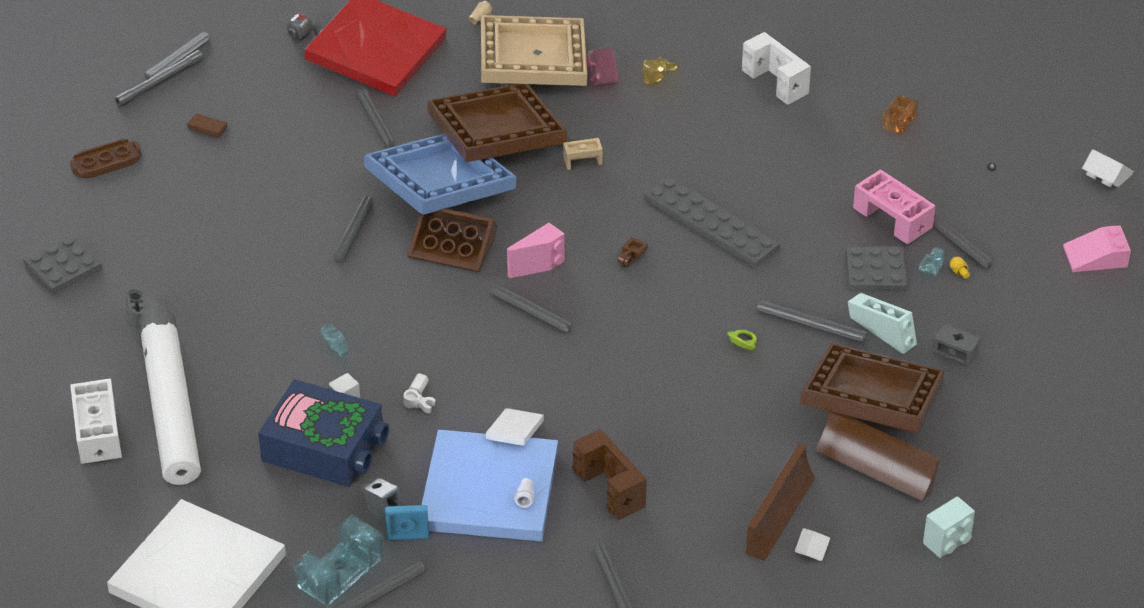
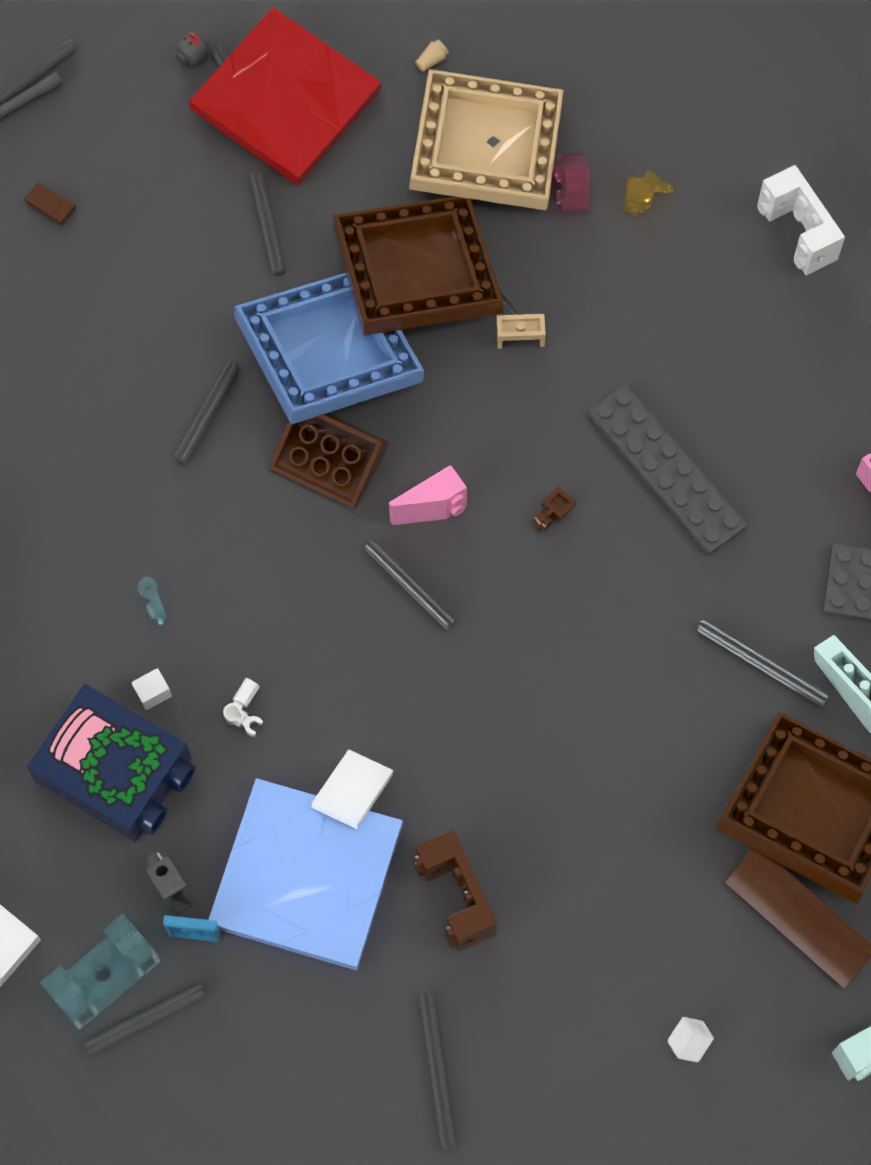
camera: 10 degrees right, 25 degrees up
(524, 495) = (344, 908): white cone -> none
(749, 345) = (672, 691): lime piece -> none
(779, 504) = (662, 973): reddish brown arch -> none

